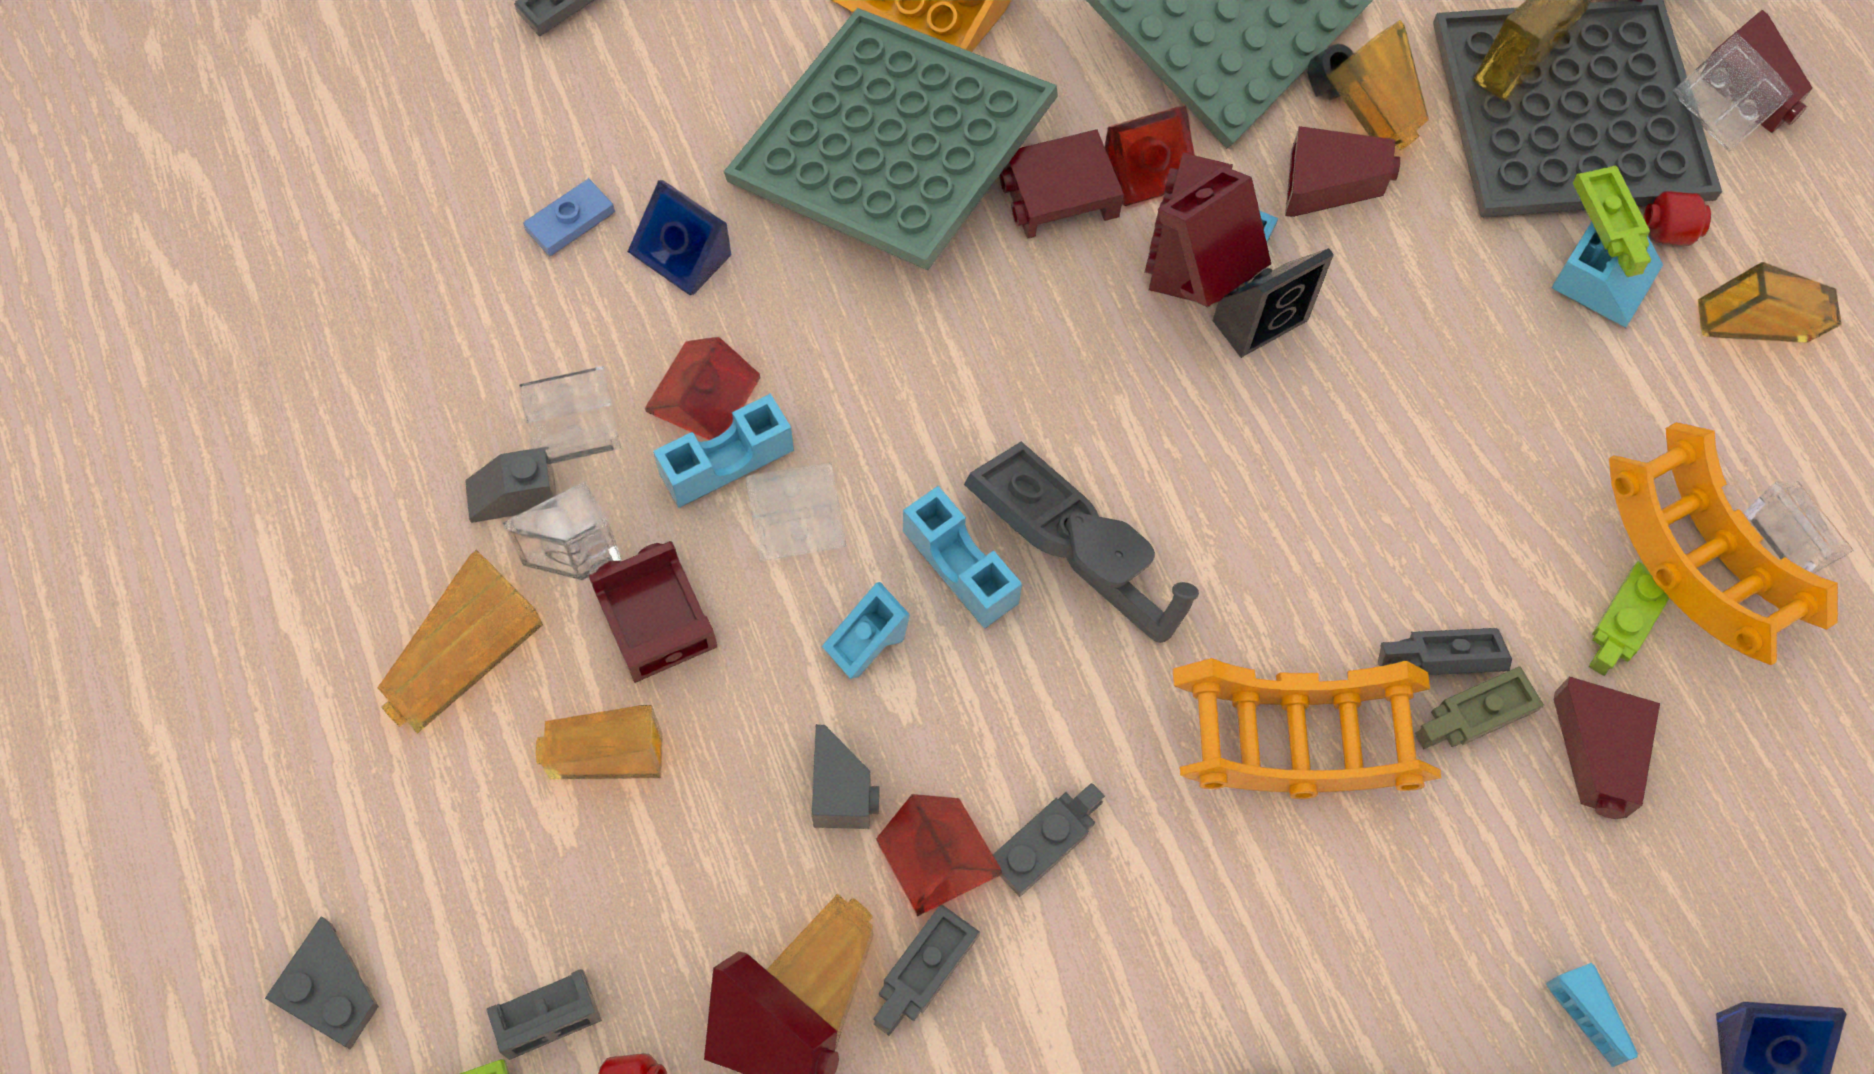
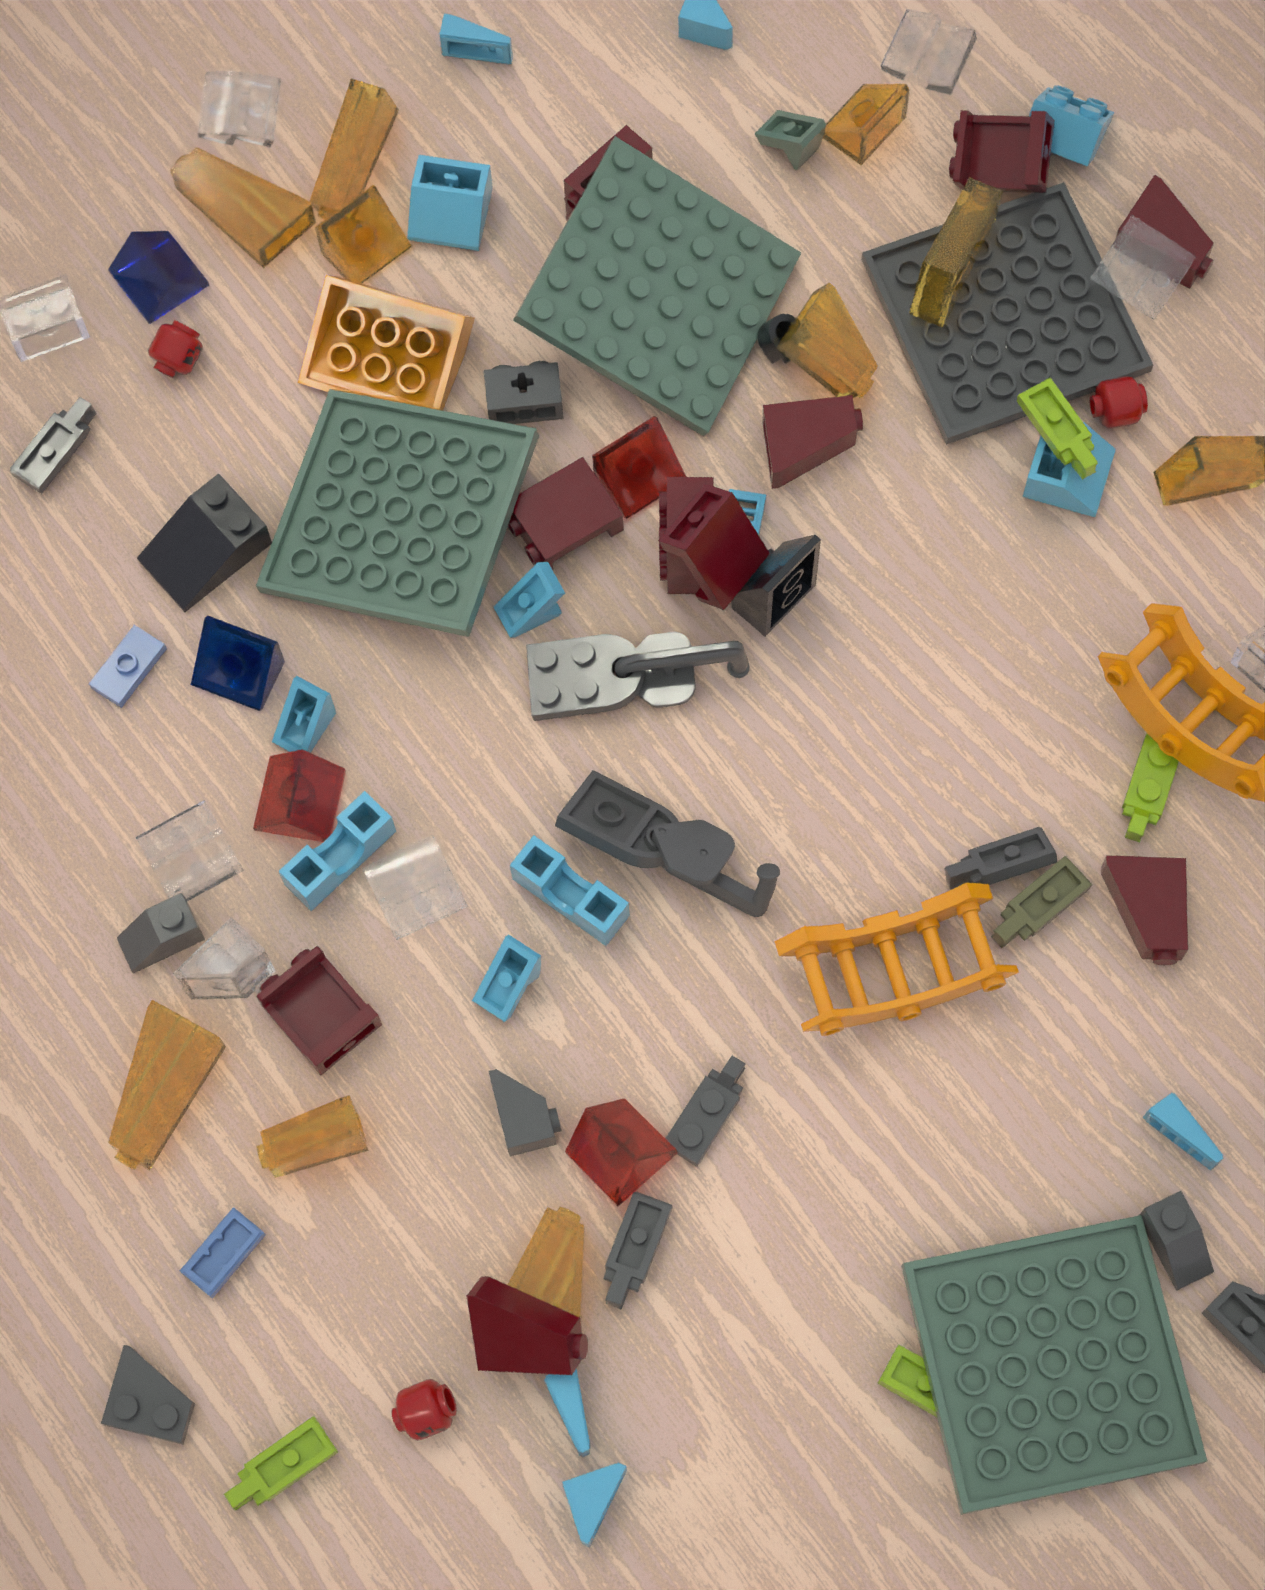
camera: 10 degrees left, 5 degrees up
(463, 844) = (222, 1252): none -> medium blue plate
(543, 1015) = (335, 1371): dark grey hinge -> none
(686, 118) = (204, 543): none -> black slope
(734, 307) = (304, 716): none -> medium azure slope
(1003, 256) = (530, 601): none -> medium azure slope
(1037, 341) = (579, 675): none -> plate
(1055, 57) = (538, 404): none -> dark grey brick

